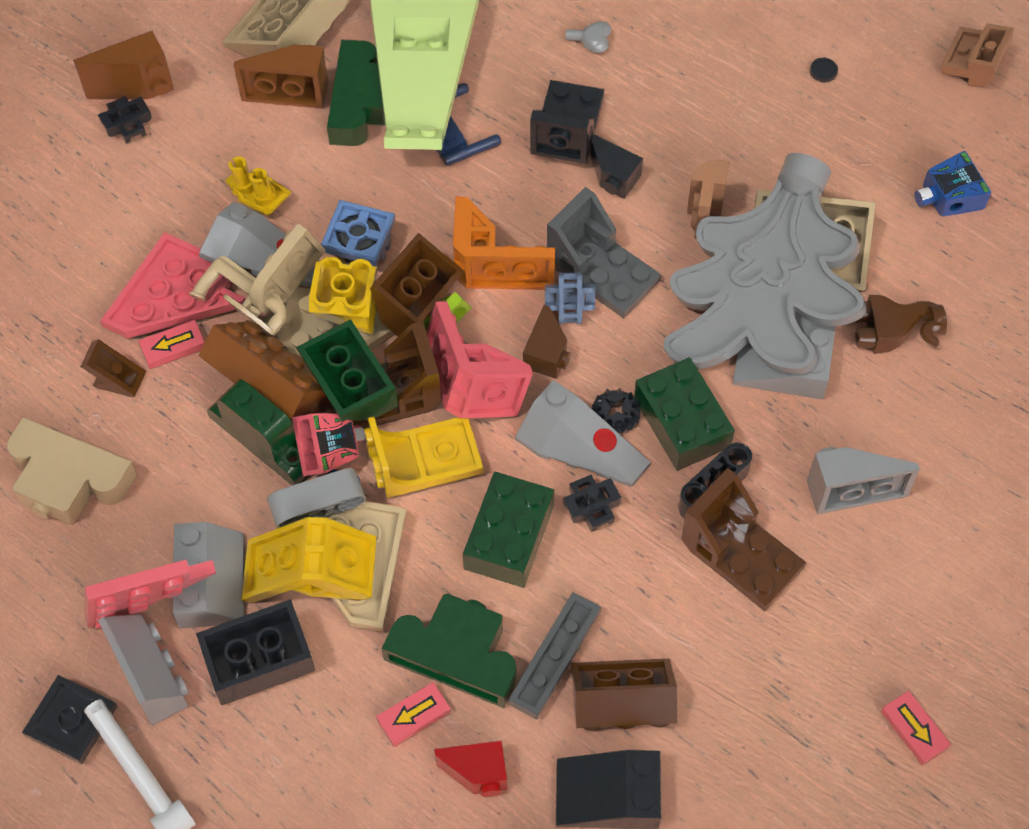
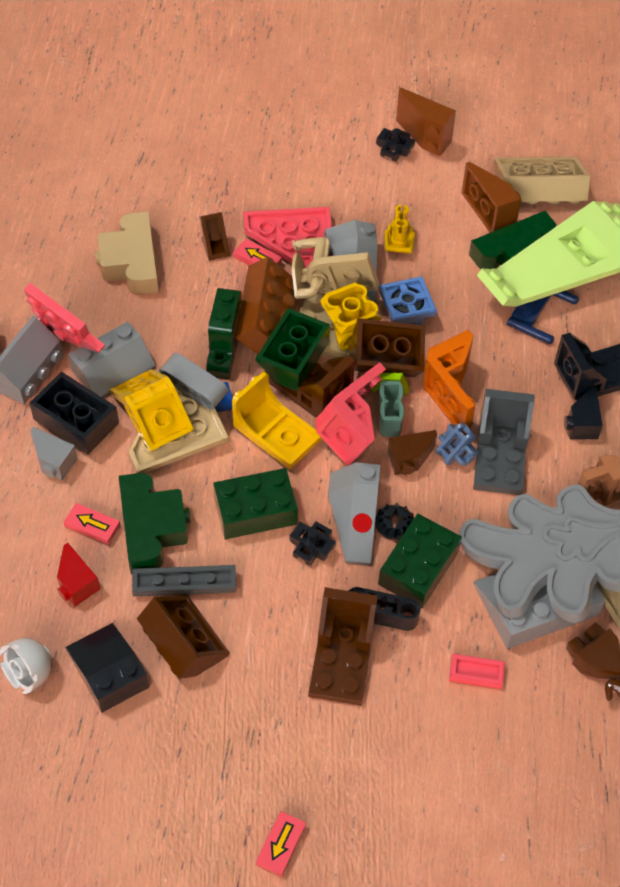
camera: 55 degrees right, 5 degrees down
(290, 708) = (53, 453): none -> light grey slope
(325, 441) = (238, 364): coral torso -> none
(481, 327) = (390, 408): none -> sand green brick
(836, 433) = (477, 671): none -> coral tile
(857, 478) = (441, 691): light grey slope -> none

